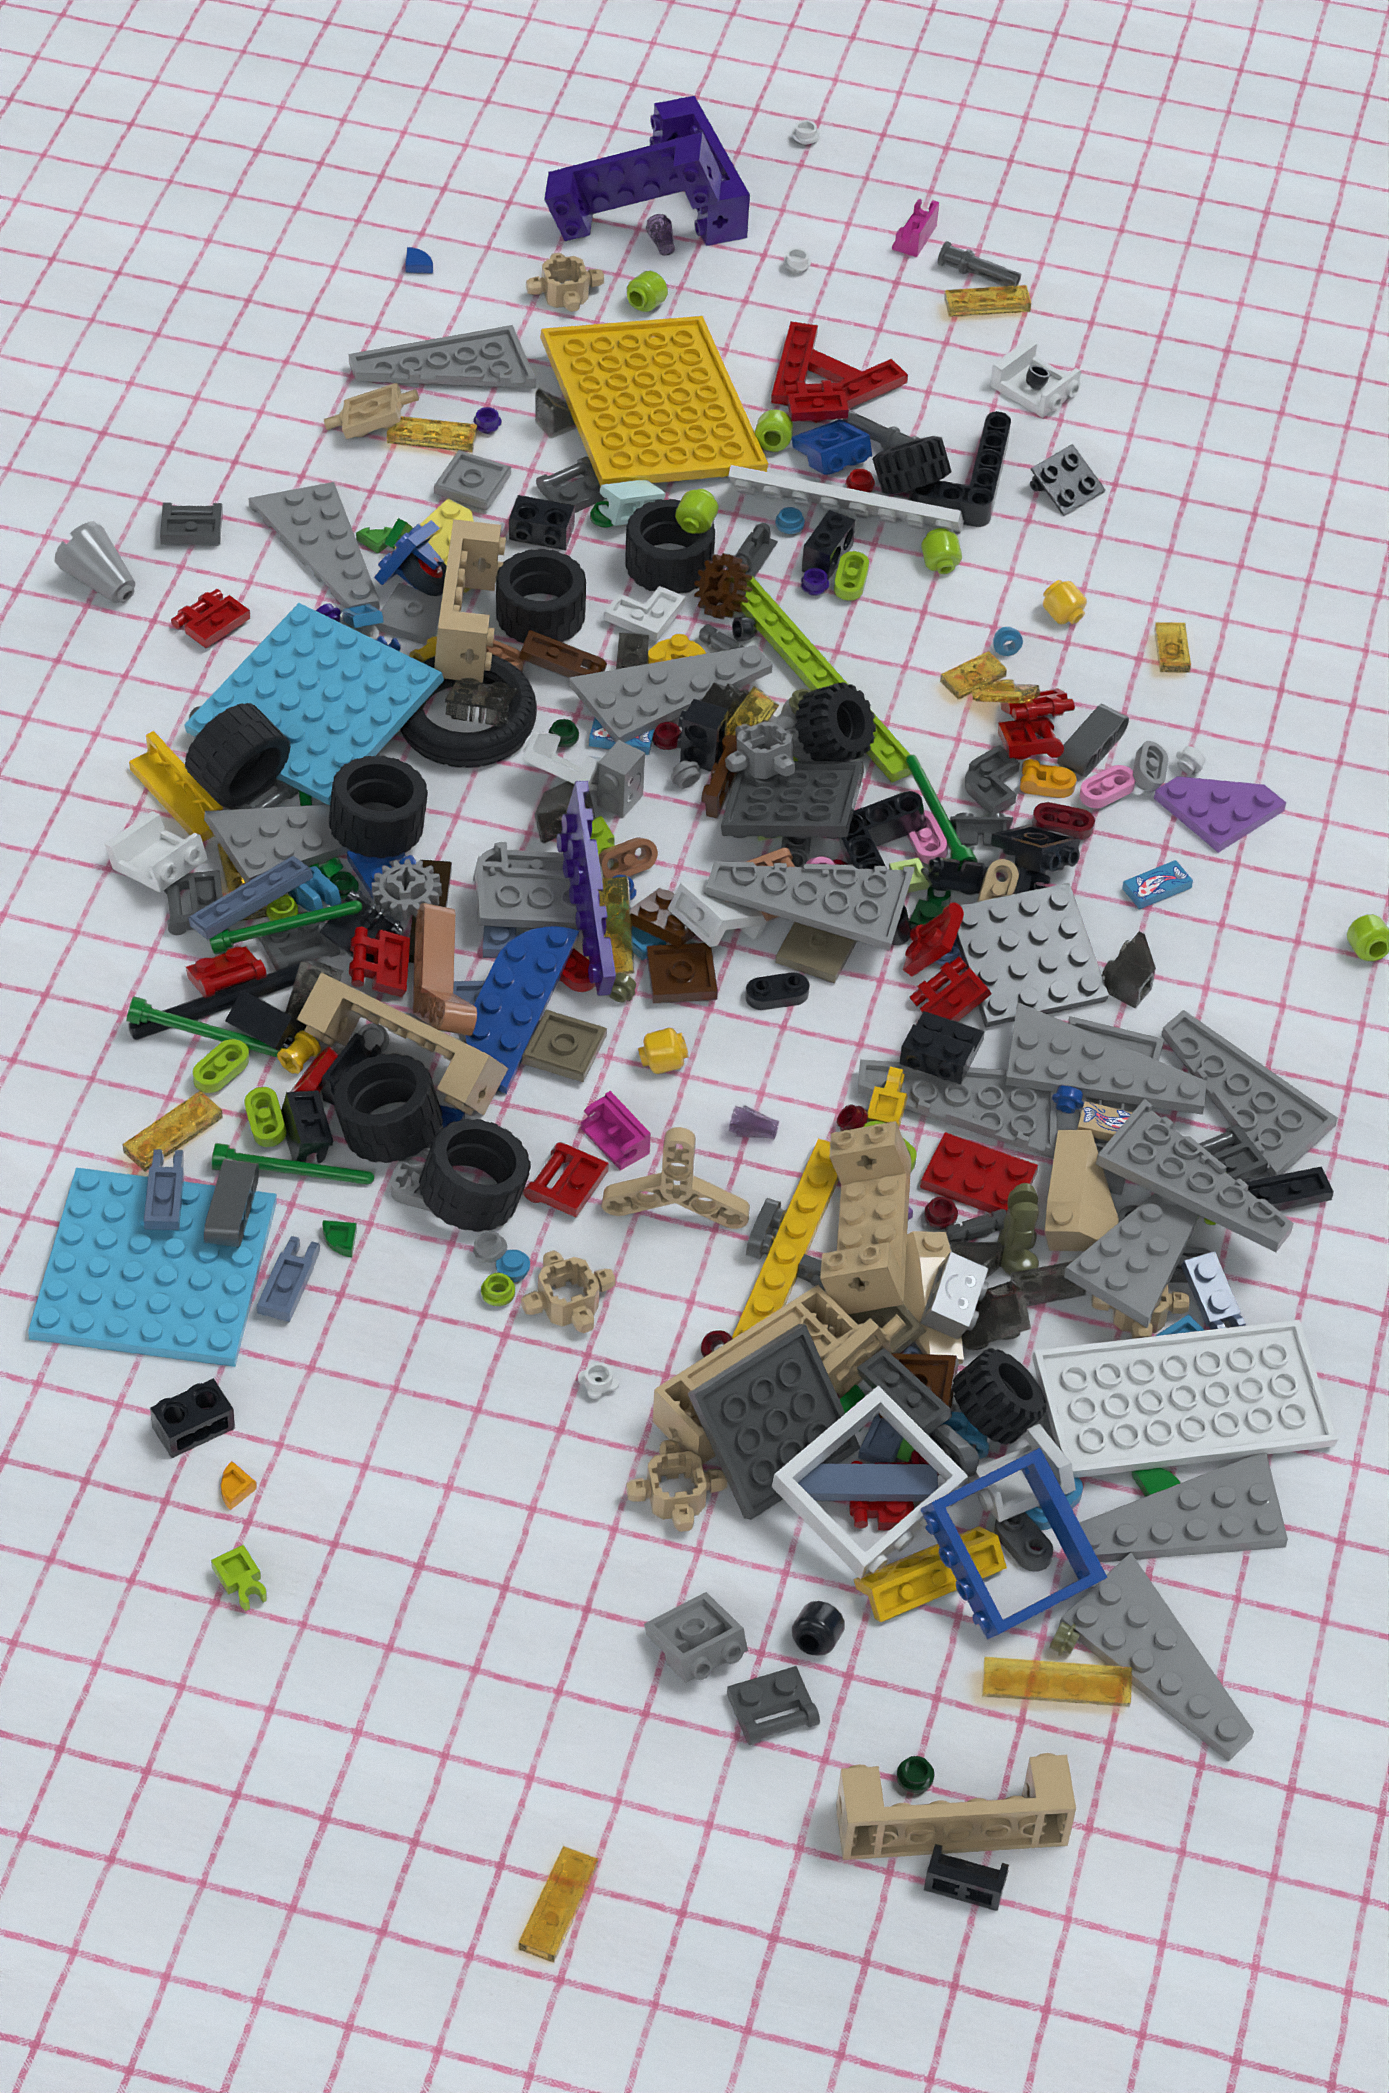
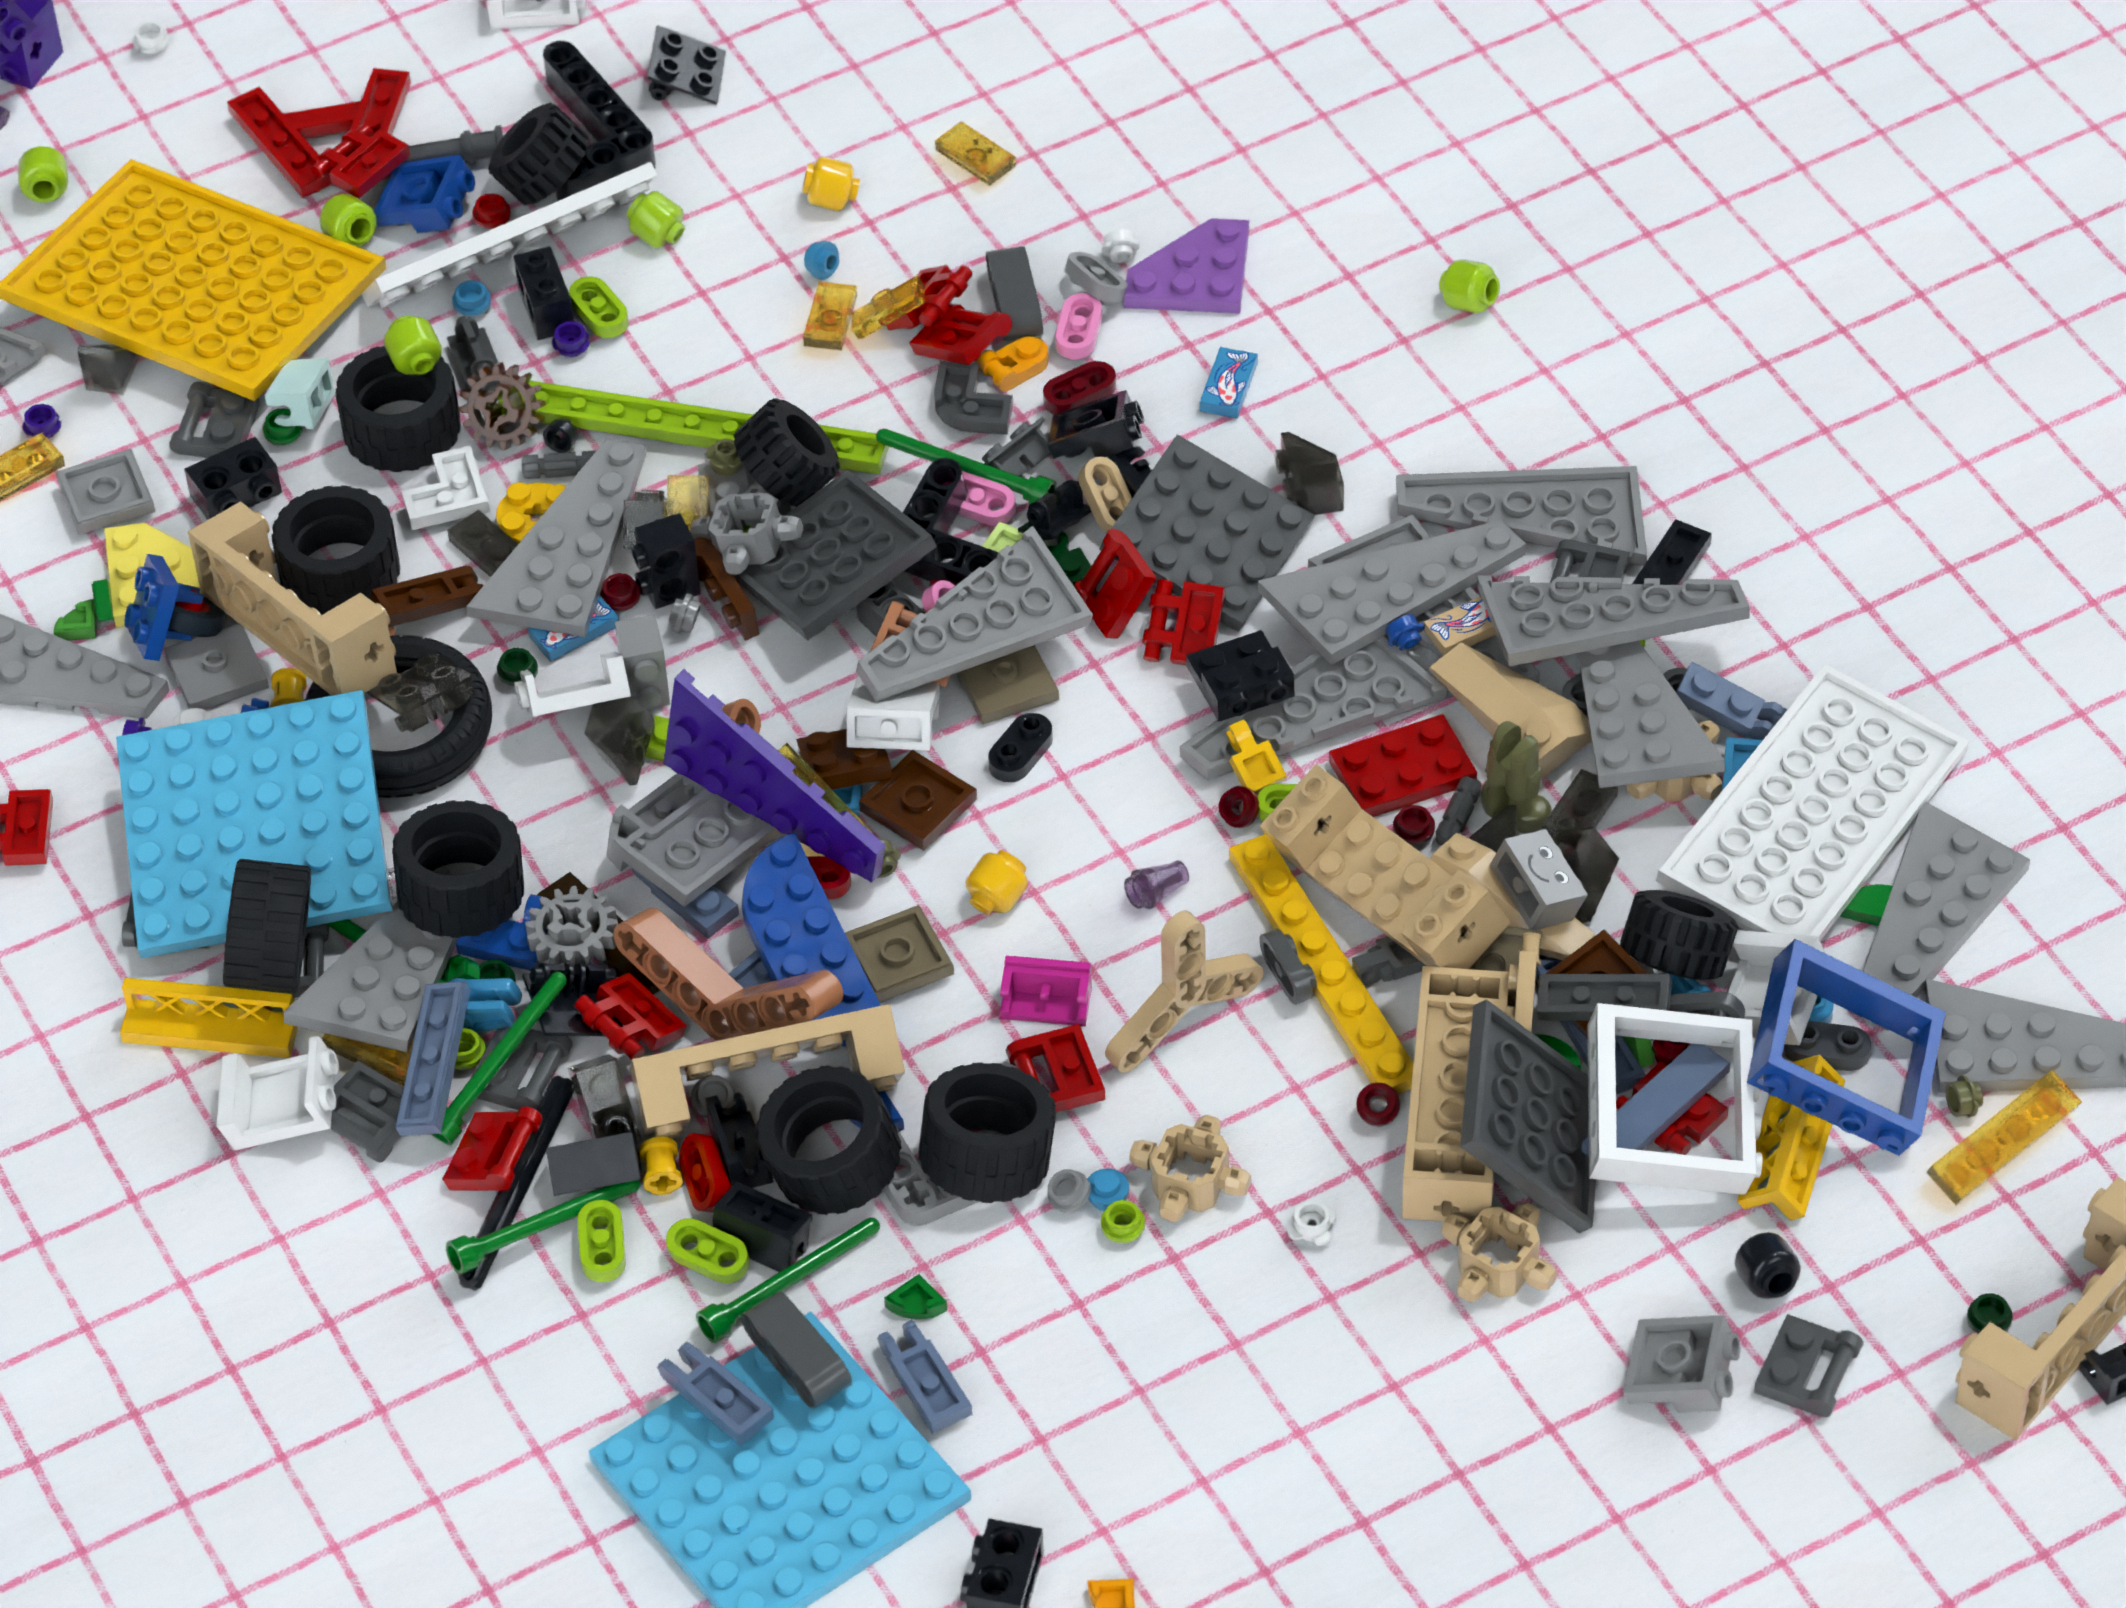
camera: 40 degrees left, 0 degrees up
(173, 1130) = (636, 1339): clear yellow plate -> none
(362, 616) = (178, 705): dark azure tile -> none

